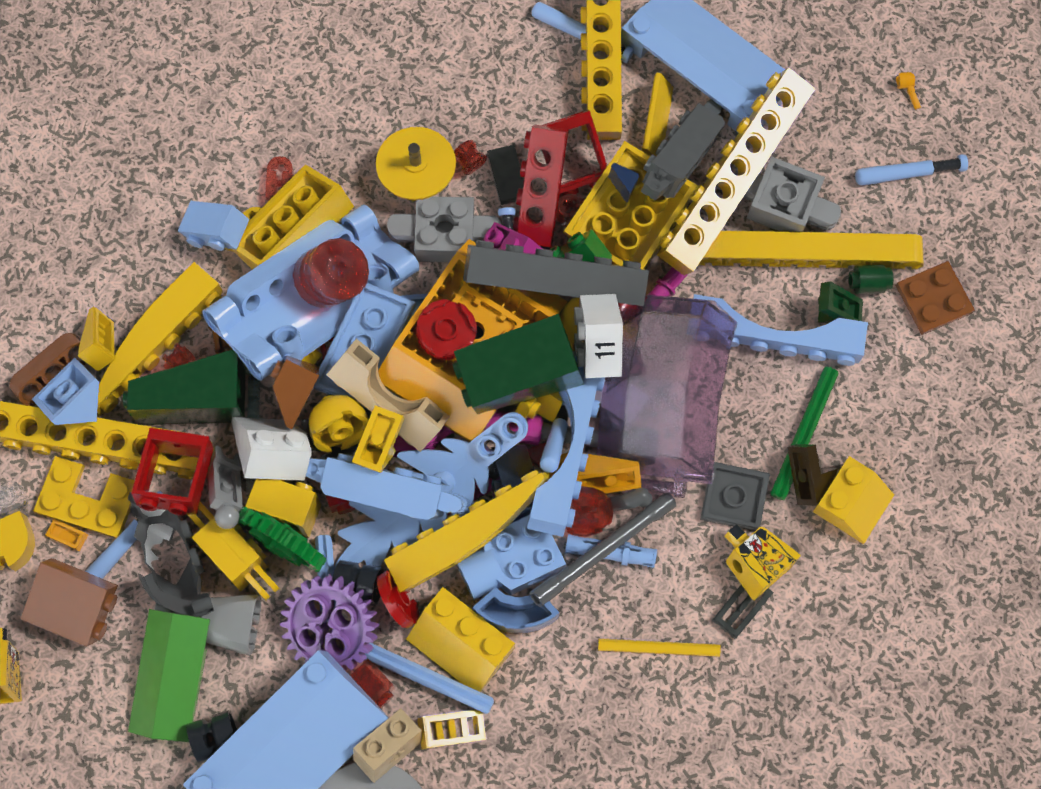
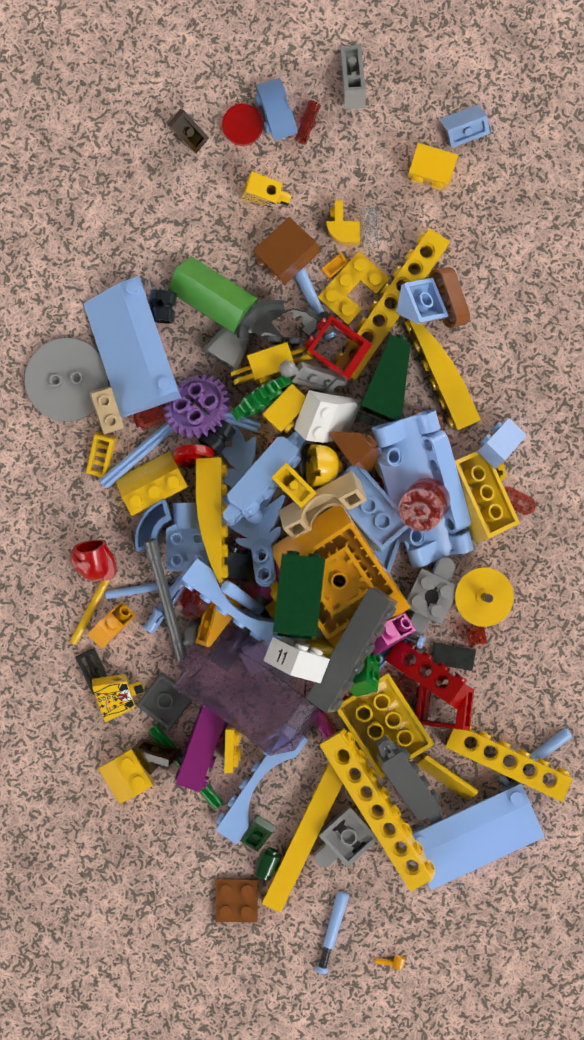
camera: 115 degrees right, 15 degrees up
(97, 344) = (453, 335): yellow slope -> none
(179, 356) = (415, 383): clear red plate -> none
(445, 328) = (346, 561): red tile -> none
(597, 669) = (93, 560): none -> red helmet
(612, 603) = (131, 590): none -> light blue bar
(624, 180) = (401, 730): dark blue slope -> none
(671, 608) = (111, 624): none -> light orange slope
(753, 376) = (232, 753): none -> yellow plate
(774, 416) = (199, 750): none -> magenta brick

